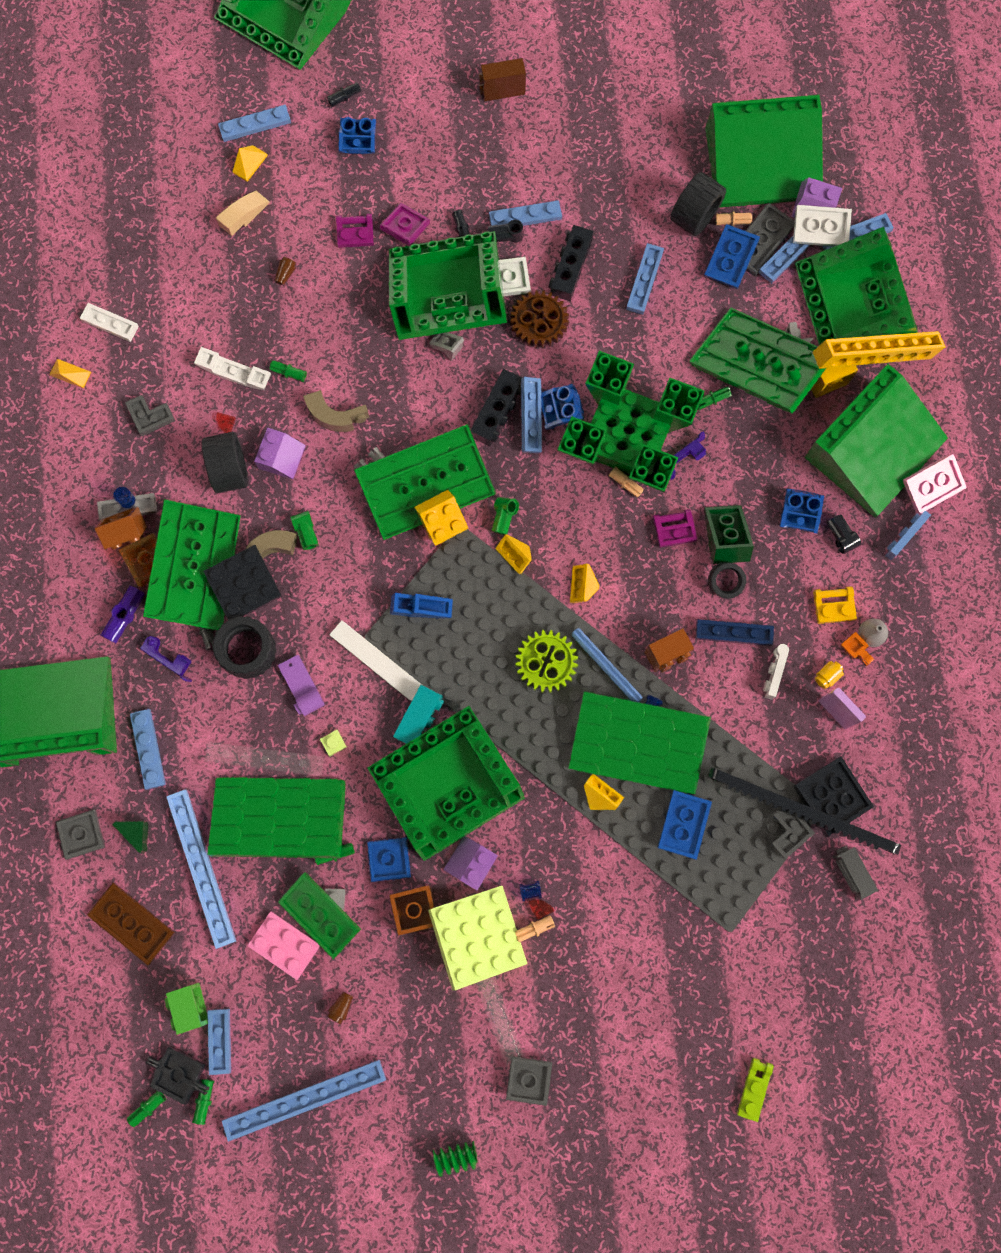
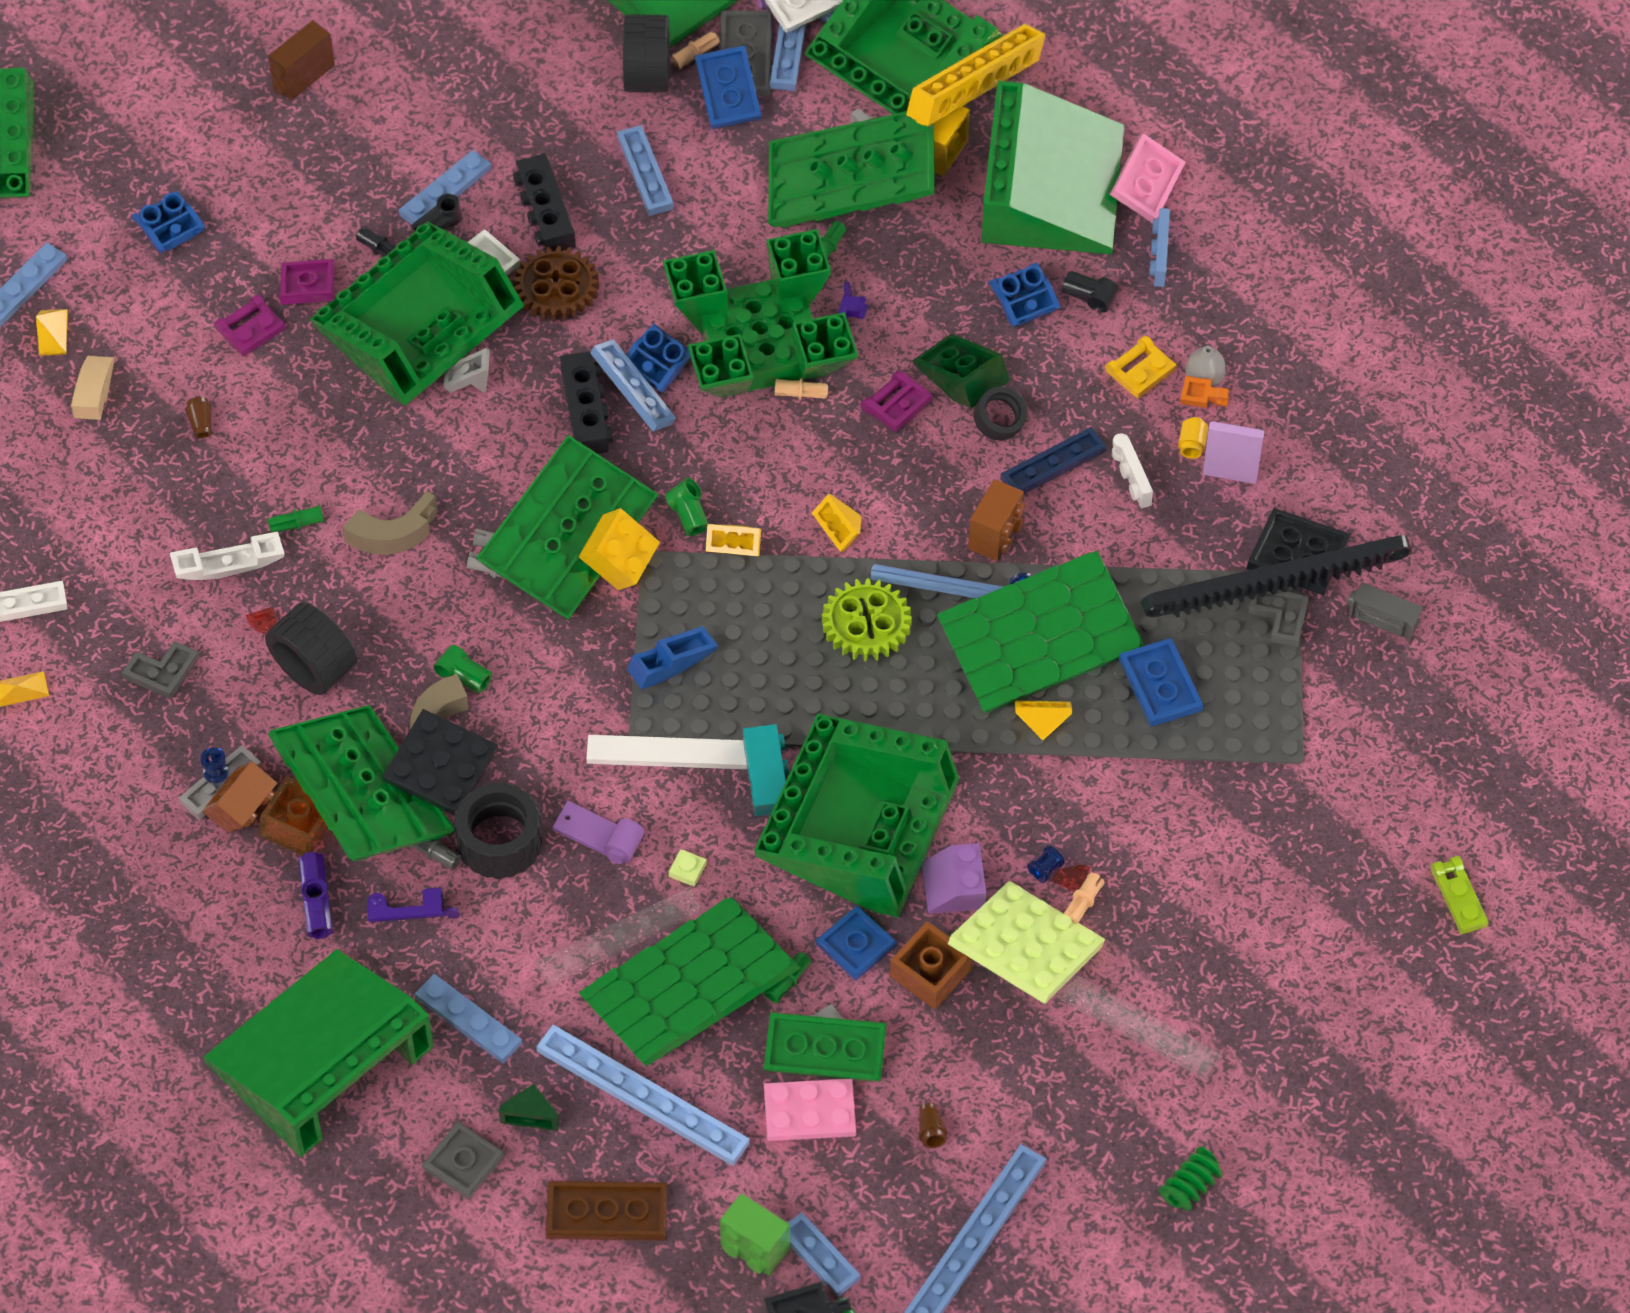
camera: 35 degrees left, 20 degrees down
(279, 453) = (362, 609): medium lavender slope -> none
(343, 94) = (110, 190): black axle -> none
(529, 1080) = (1206, 1049): dark grey tile -> none

